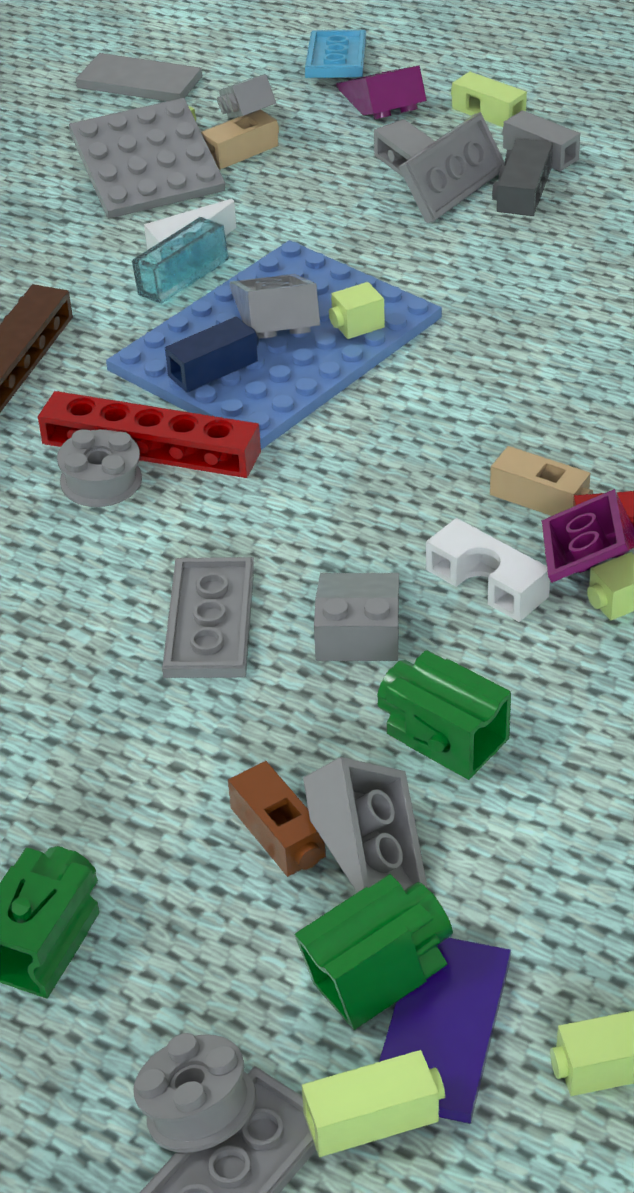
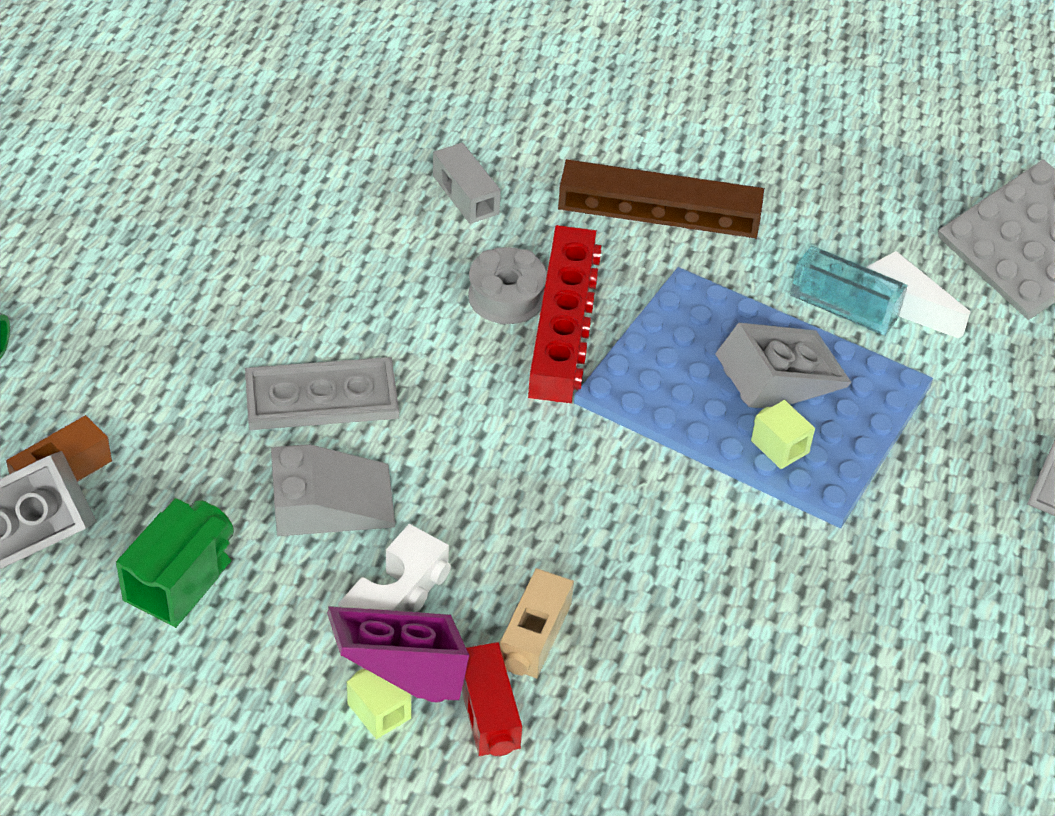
camera: 75 degrees right, 5 degrees up
(211, 354) = (676, 329): dark blue brick -> none

